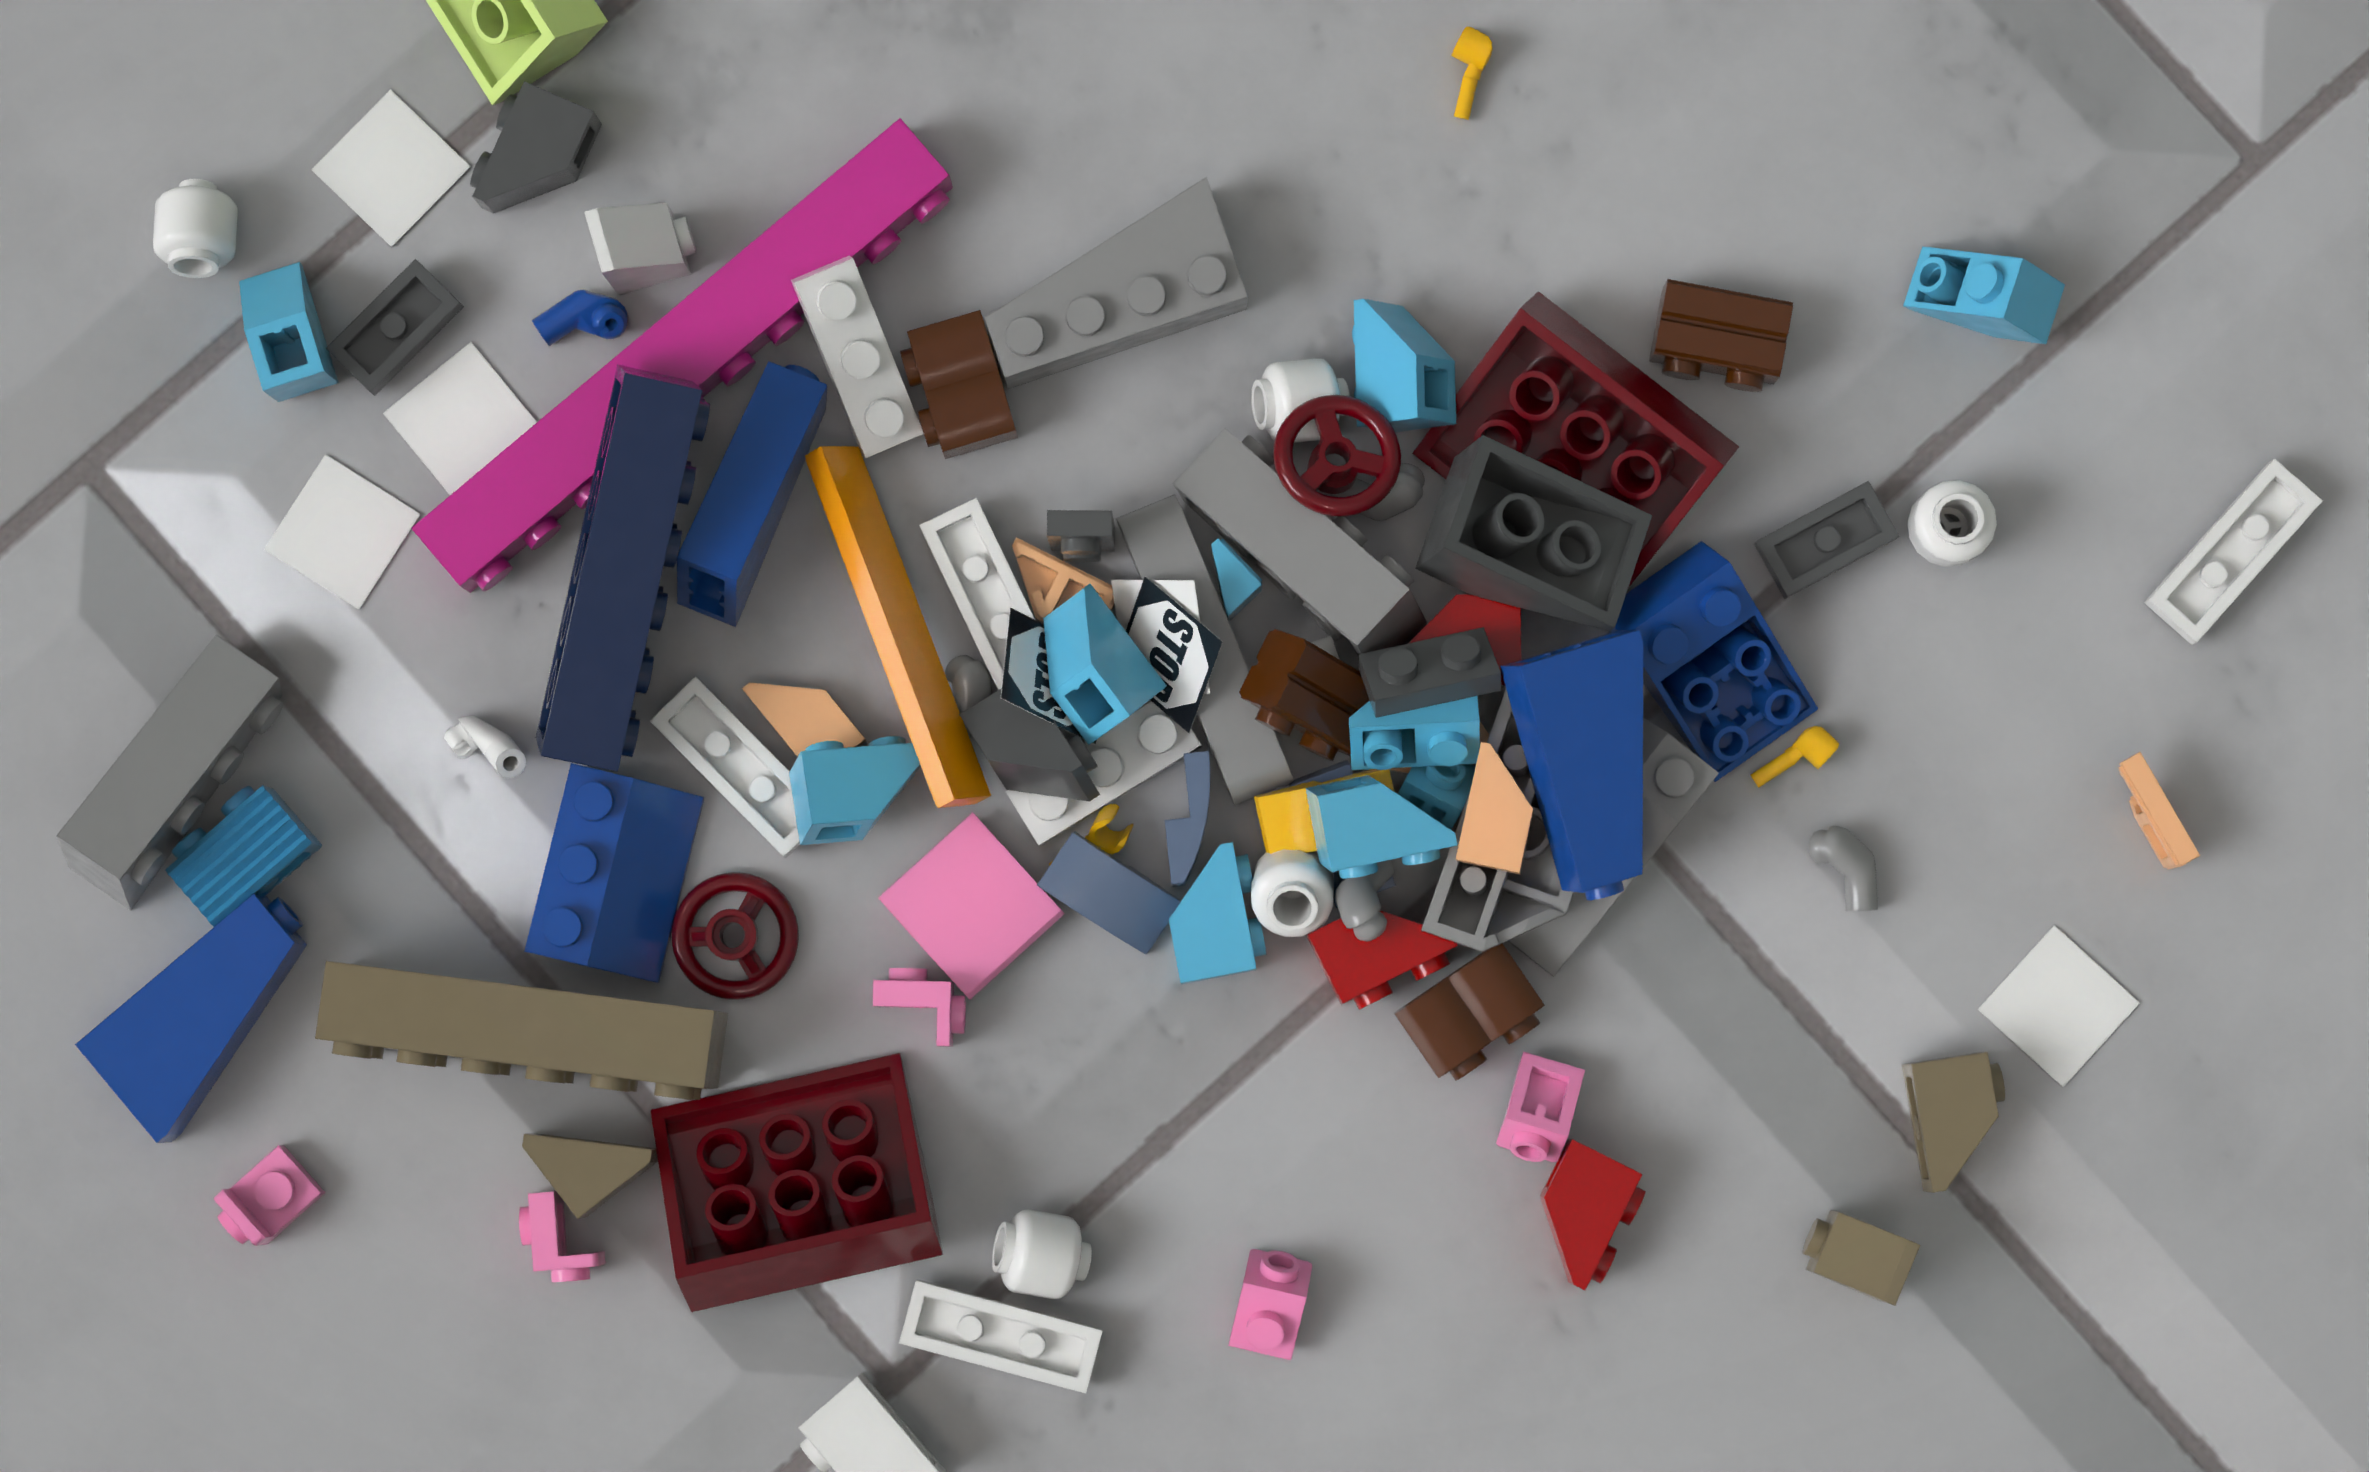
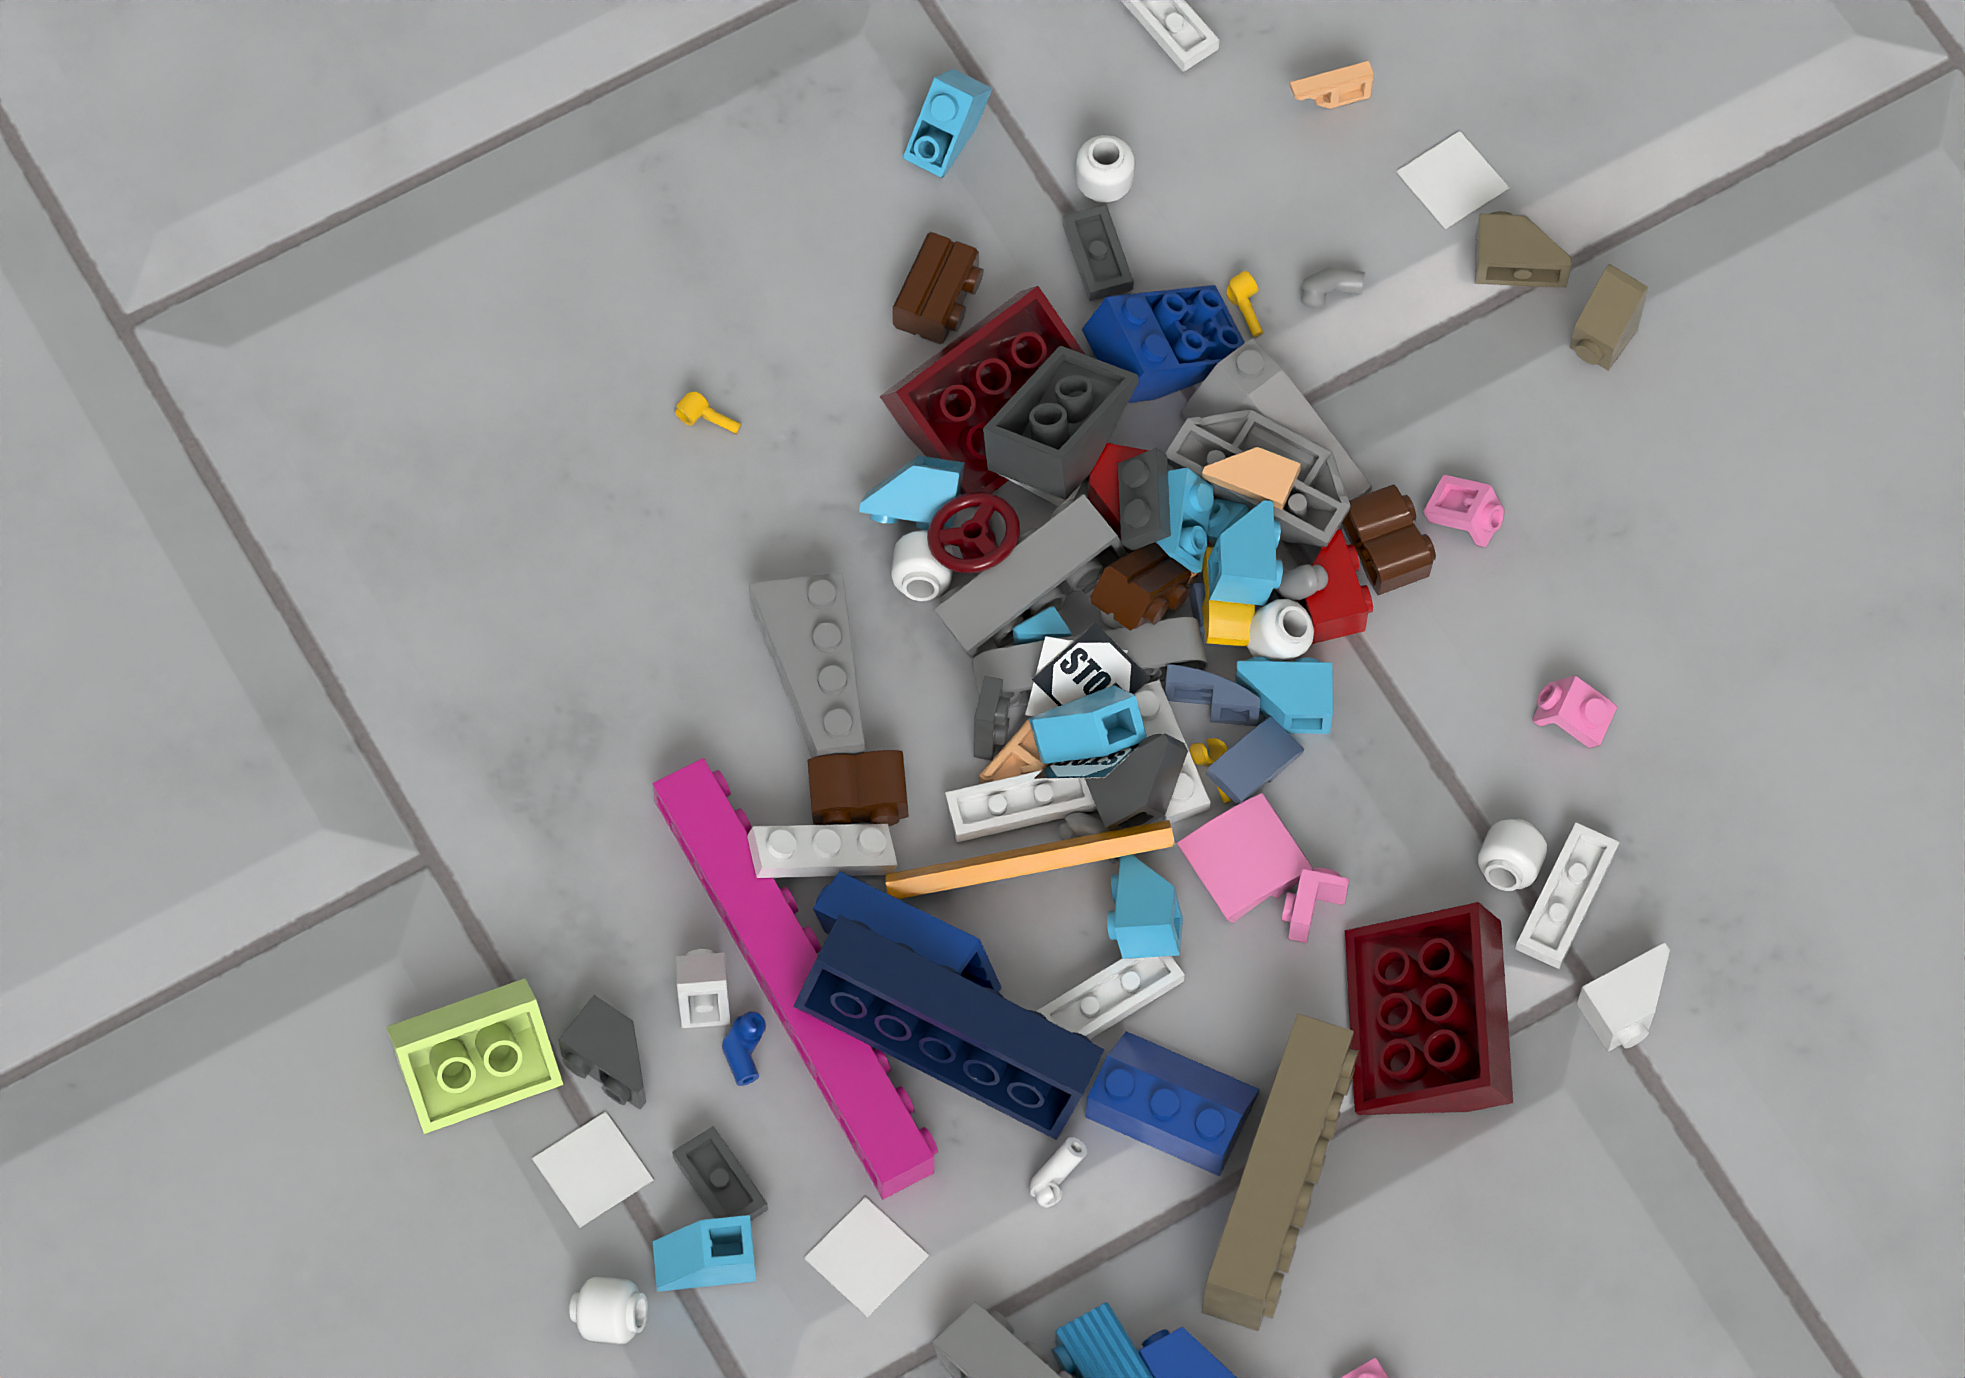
camera: 85 degrees left, 20 degrees down
(460, 418) = (800, 1153): white sticker -> none
(544, 1229) = (1437, 1196): bright pink bracket -> none
(587, 1170) = (1395, 1158): dark tan slope -> none
(759, 977) = (1239, 1011): dark red piece -> none
(803, 715) = (1083, 948): light nougat tile -> none
(1583, 1207) = (1543, 493): red slope -> none
(1585, 755) = (1226, 406): blue slope -> none

